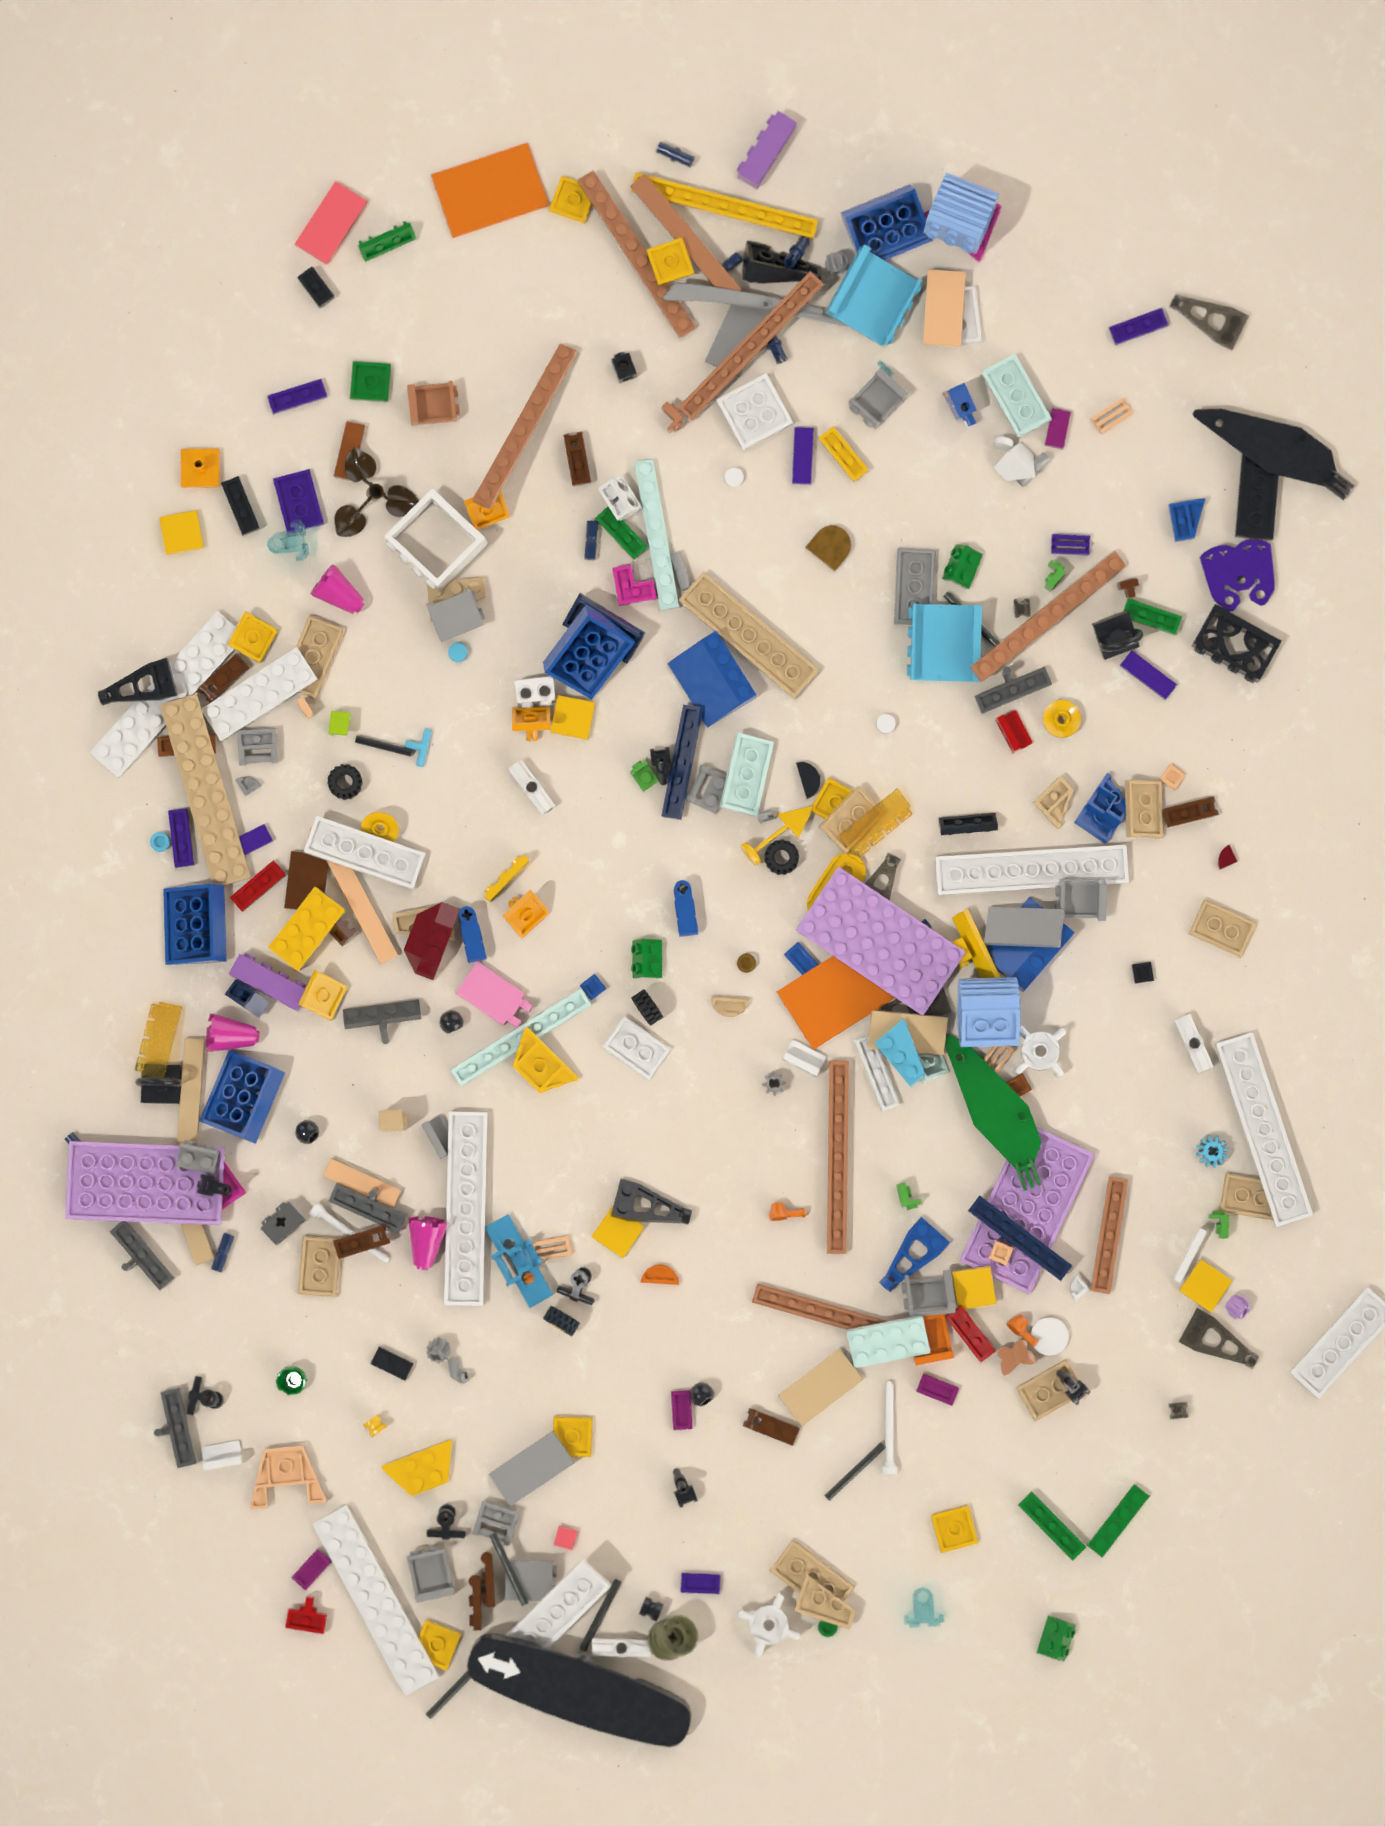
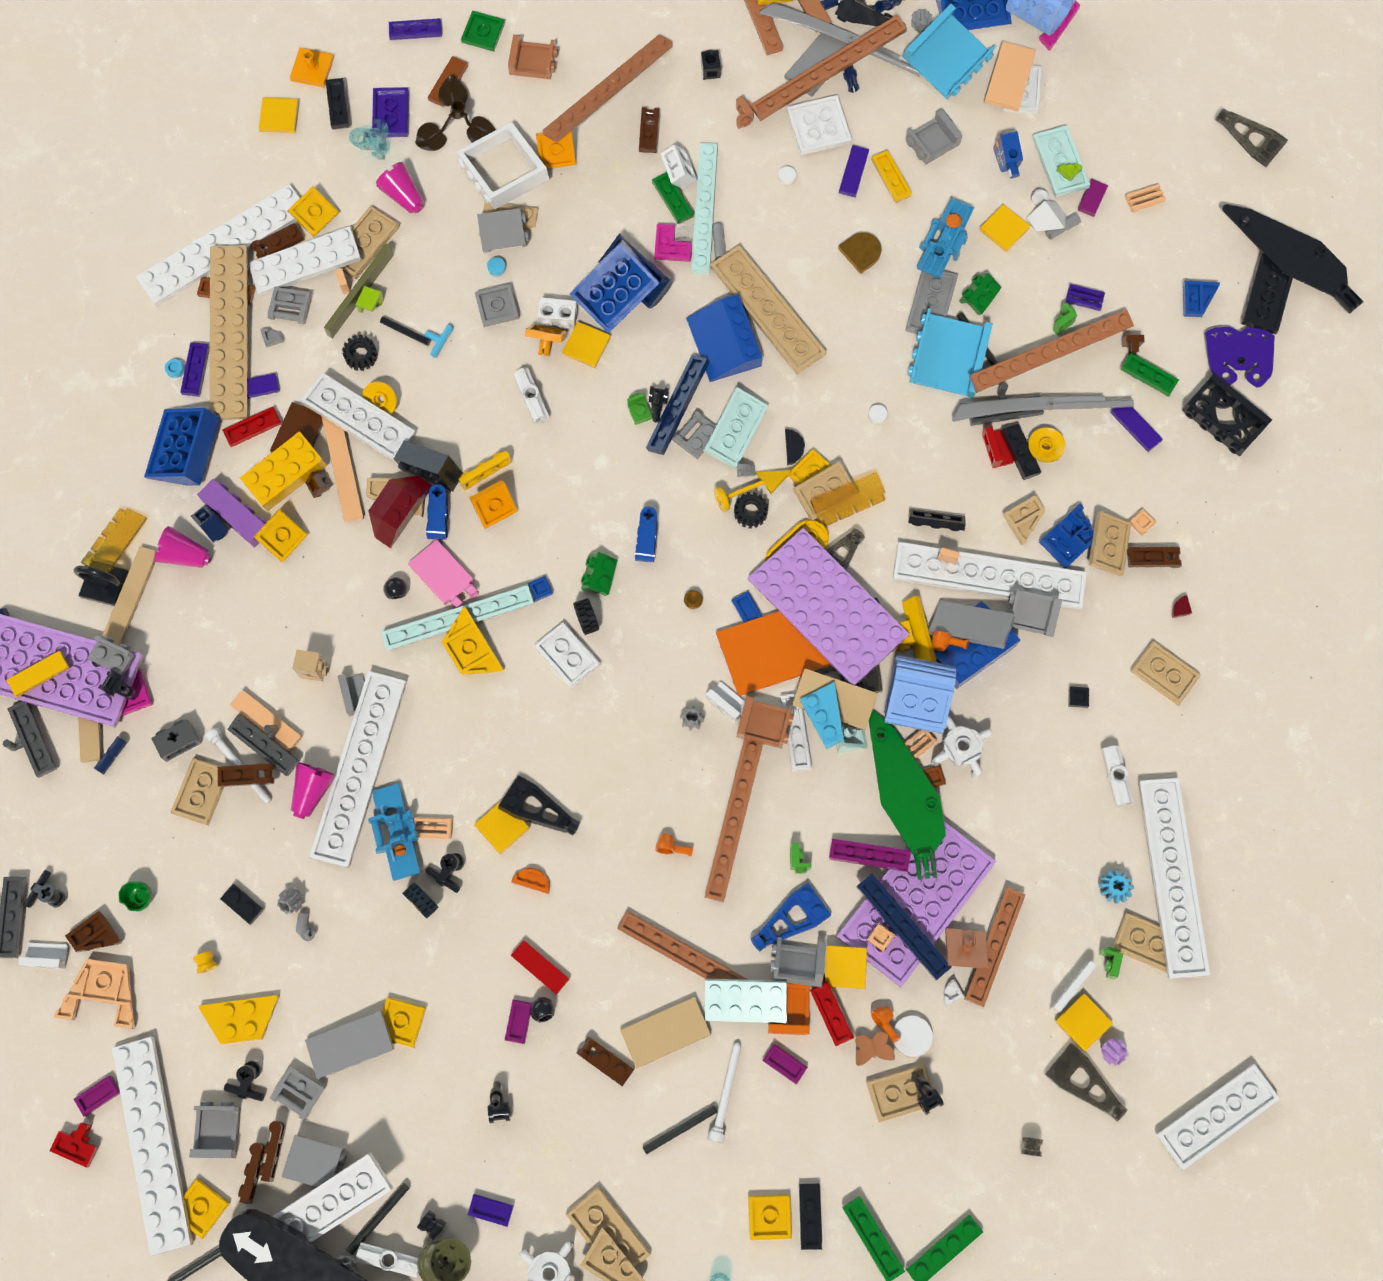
camera: 20 degrees right, 10 degrees down
(132, 1192) = (38, 674): none -> yellow tile
(162, 679) = (219, 227): black plate -> none
(242, 1096) = (176, 612): blue slope -> none
(261, 1425) = (93, 934): none -> reddish brown wing
(307, 1132) = (226, 658): black piece -> none
(325, 713) = (367, 279): none -> olive tile
(382, 1015) = (331, 567): dark grey plate -> none
(448, 887) = (428, 464): none -> black wedge
(470, 696) = (496, 305): none -> light grey plate
(508, 1568) = (294, 1147): pearl dark grey bar -> none
(565, 1538) = (364, 1126): coral tile -> none
(591, 536) = (643, 200): dark blue piece -> none
(688, 1355) = (540, 967): none -> red tile
(729, 1006) = (667, 636): tan tile -> none
(846, 1073) = (764, 723): none -> nougat panel
(920, 516) = (950, 241): none -> dark azure piece
(973, 485) = (1004, 228): none -> yellow tile
(974, 1177) = (870, 855): none -> magenta plate
(987, 862) = (948, 555): none -> light nougat tile
(990, 695) = (988, 407): none -> light grey piece
(990, 1519) = (810, 1217): none -> black tile
(999, 950) = (942, 640): none -> orange bar
(1022, 608) = (1028, 340): clear smoke wheel -> none
(1027, 408) = (1069, 171): none -> lime tile
(1035, 729) = (1020, 452): none -> black plate
(1082, 1244) = (966, 948): none -> nougat piece
(1116, 635) = (1114, 381): black tile -> none
(1138, 326) = (1183, 130): dark purple tile -> none

